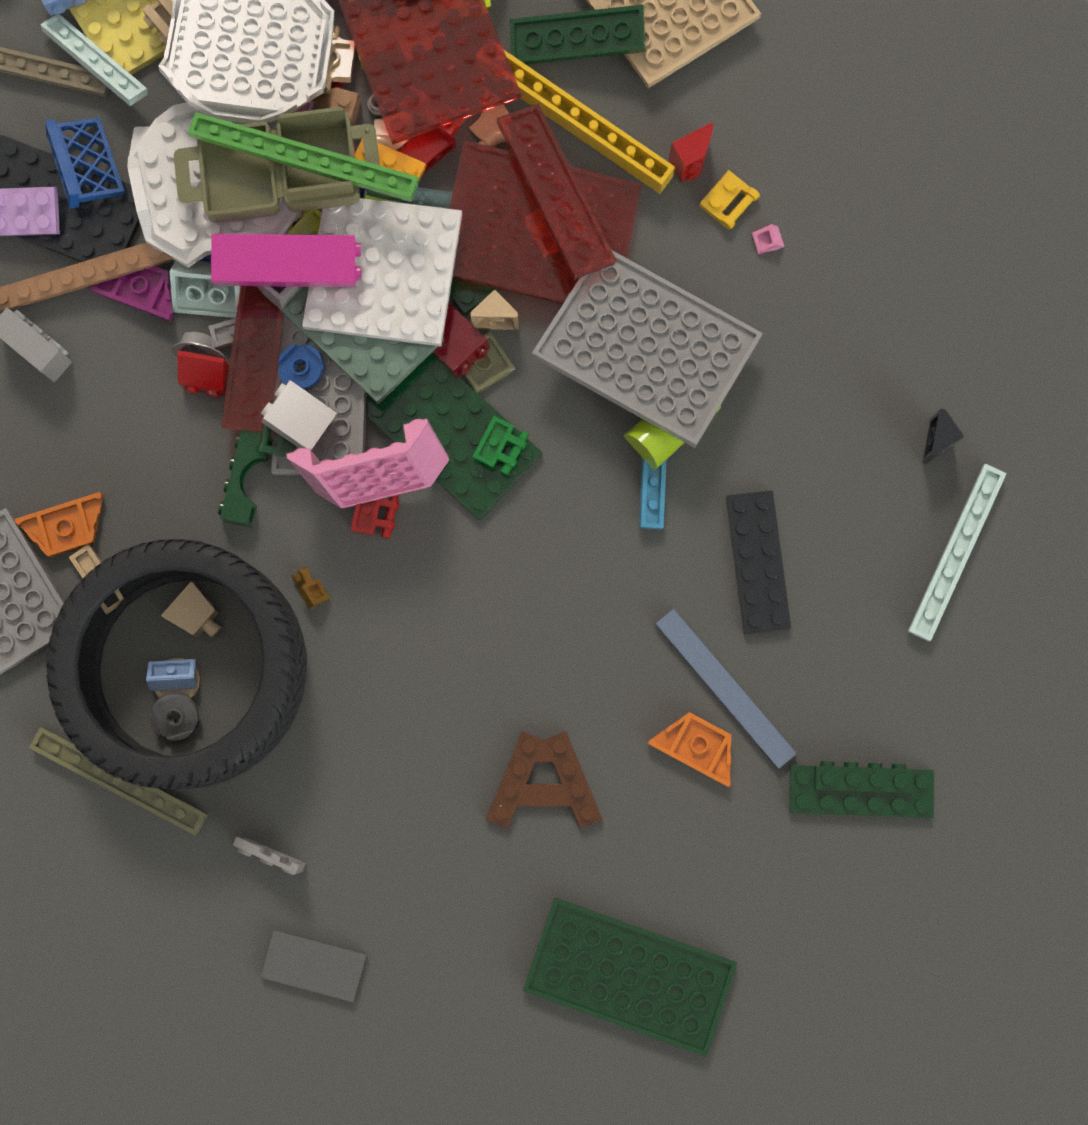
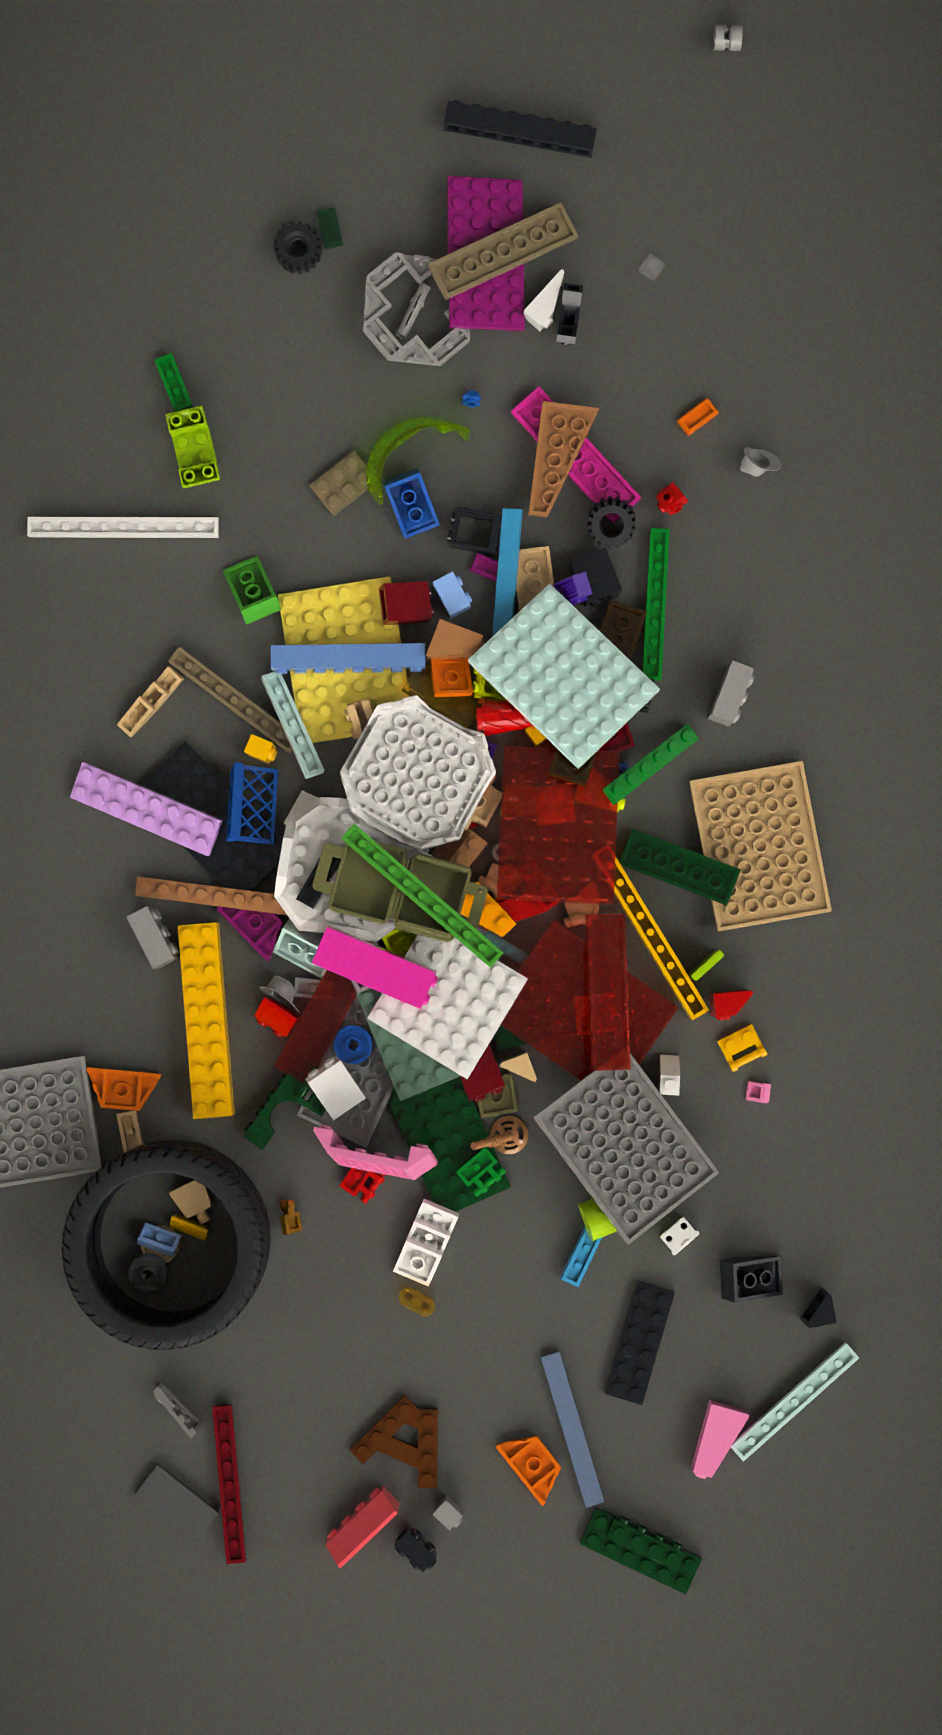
camera: 20 degrees right, 5 degrees up
(69, 99) = (261, 749): none -> yellow brick
(127, 412) = (206, 1020): none -> yellow brick
(151, 799) = (53, 1264): olive plate -> none
(183, 214) = (310, 896): none -> black tile
(201, 647) = (189, 1226): none -> yellow slope
(365, 916) = (229, 1484): none -> dark red plate
(473, 551) = (426, 1242): none -> white slope
(491, 620) = (416, 1301): none -> clear yellow plate
(512, 400) = (499, 1141): none -> medium nougat dish
(534, 895) = (362, 1525): none -> coral slope
(614, 899) = (418, 1551): none -> black brick
(627, 840) = (448, 1513): none -> light grey brick
(630, 976) = (407, 1614): dark green plate -> none
(651, 121) = (705, 965): none -> lime tile
(663, 260) = (669, 1075): none -> white slope
(750, 425) = (680, 1236): none -> white piece
(848, 437) = (751, 1278): none -> black slope
(888, 625) = (718, 1433): none -> bright pink slope

